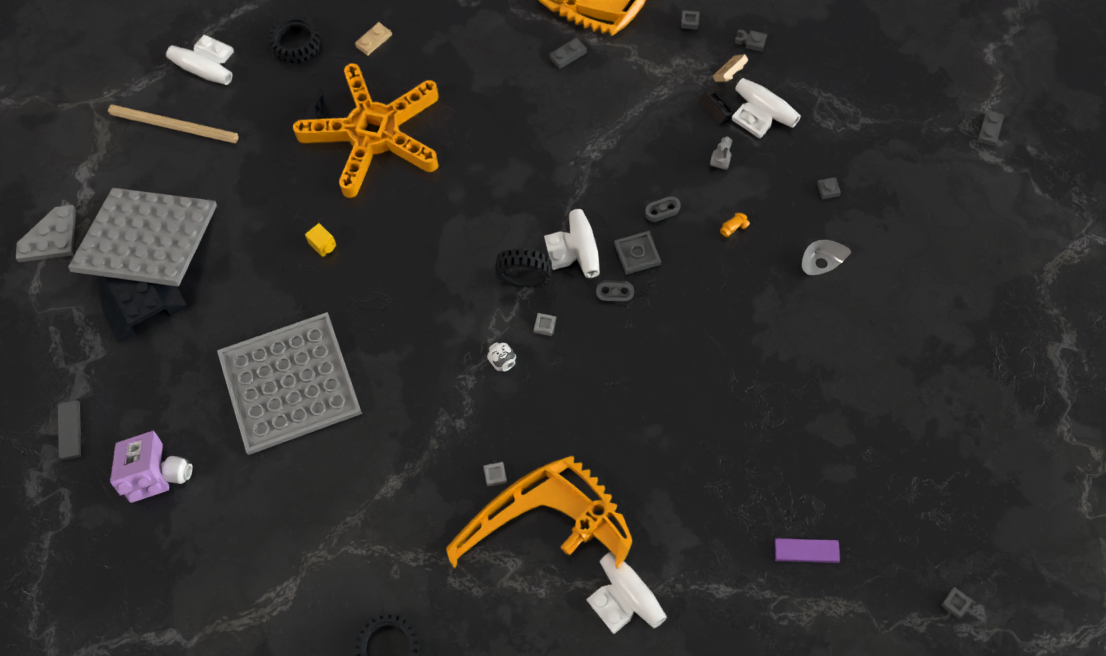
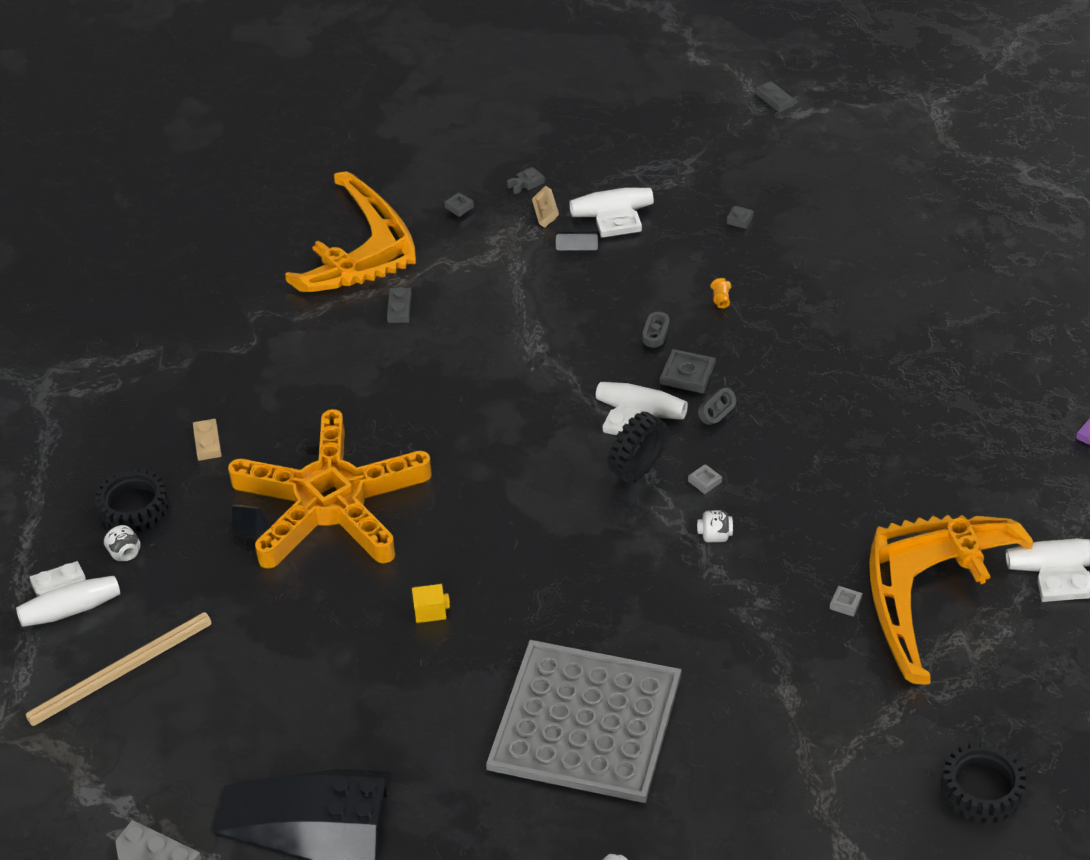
camera: 55 degrees left, 20 degrees down
(143, 237) = (262, 760): light grey plate -> none
(259, 58) = (122, 543): none -> white head
(721, 156) = (638, 261): light grey axle -> none
(829, 250) = (812, 248): light grey piece -> none

